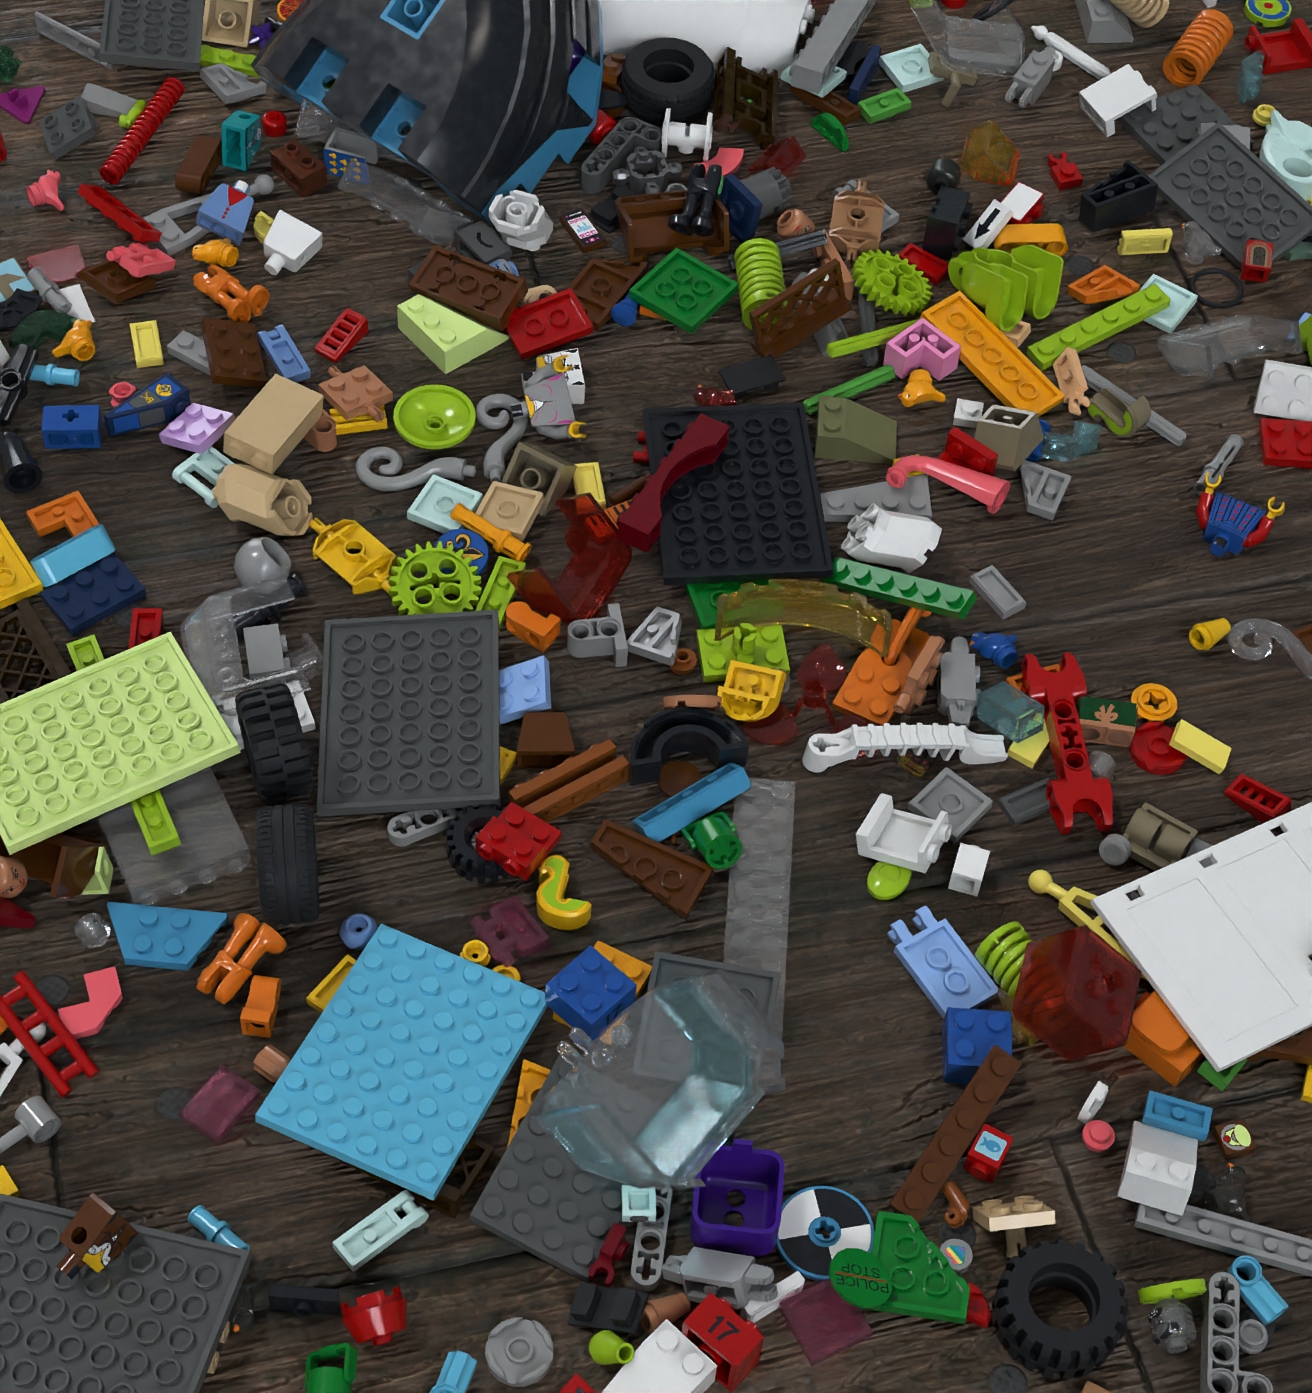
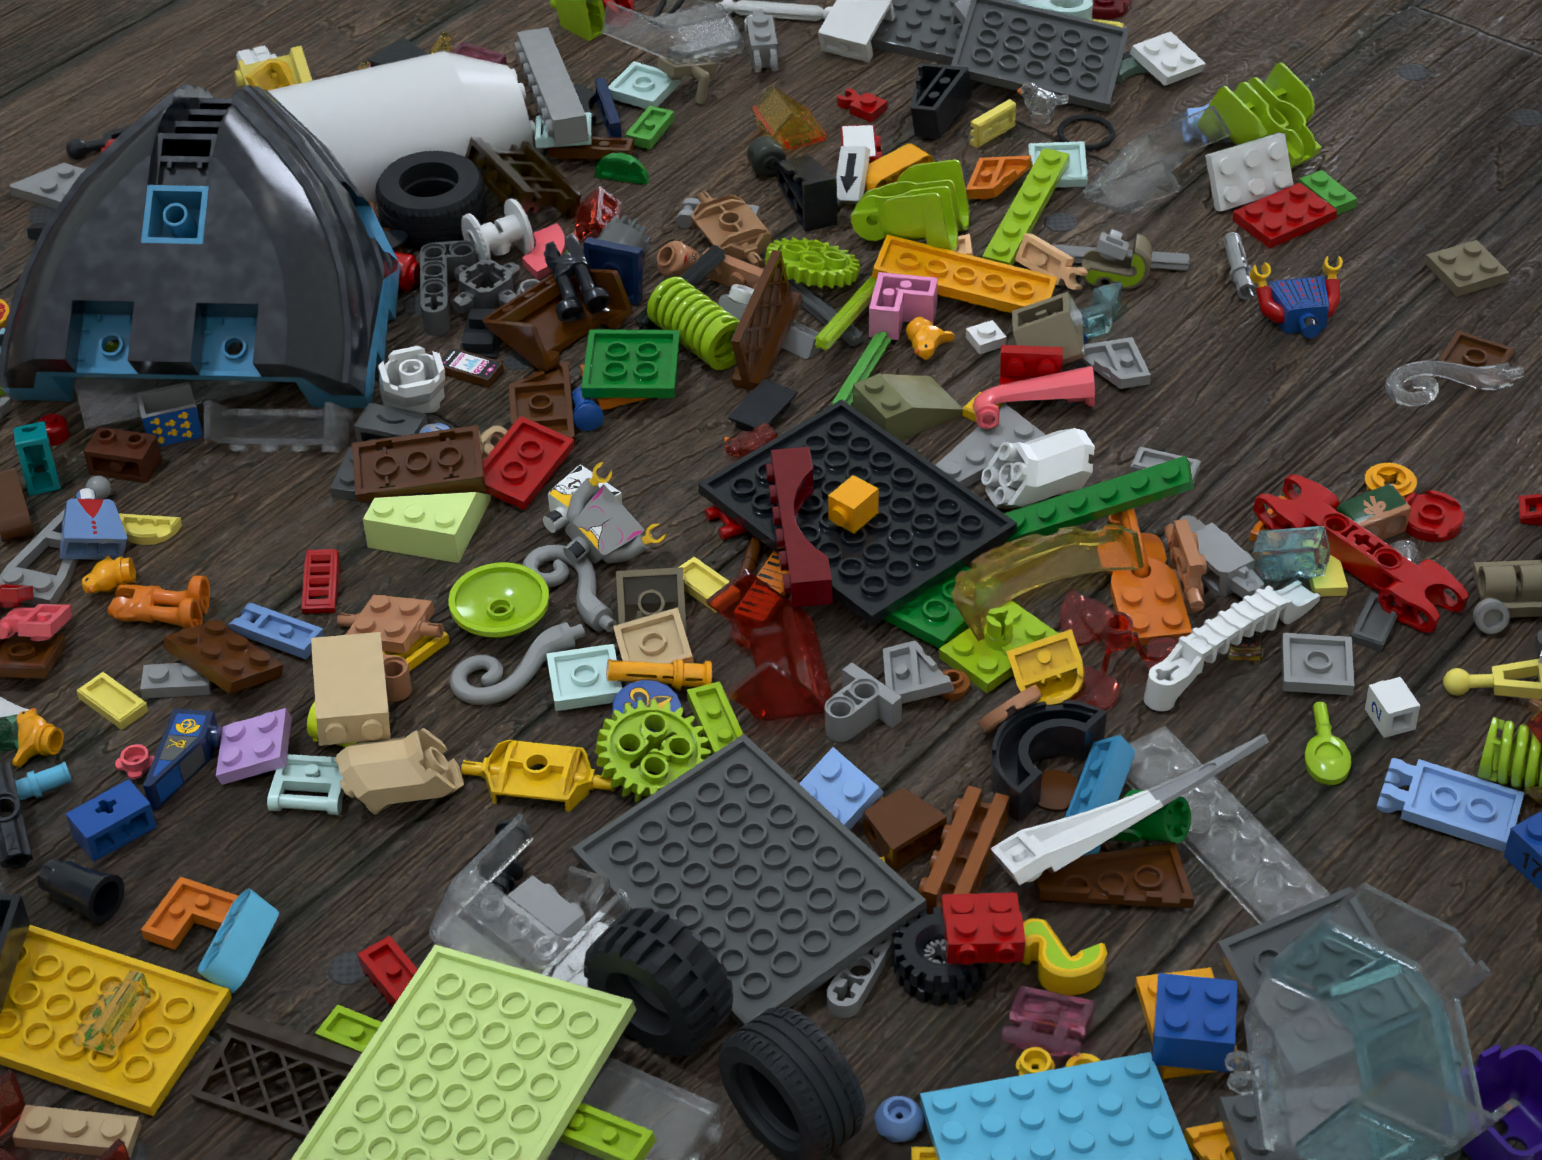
camera: 30 degrees left, 10 degrees down
(93, 594) = (291, 970): dark blue plate -> none
(261, 561) = (458, 832): light grey helmet -> none
(290, 243) = (185, 524): white torso -> none
(531, 626) = (781, 734): orange leg -> none
(625, 815) = (1064, 840): none -> white plate
(724, 487) = (853, 504): none -> light orange brick
(902, 836) = (1313, 712): white panel -> none
(933, 267) = (834, 234): red tile -> none
(996, 648) = (1218, 511): blue animal -> none
(1121, 394) = (1111, 246): none -> light grey plate
(1200, 746) = (1467, 492): light yellow tile -> none
(1207, 634) = (1375, 401): yellow cone -> none
(1256, 261) = (1107, 89): red brick -> none

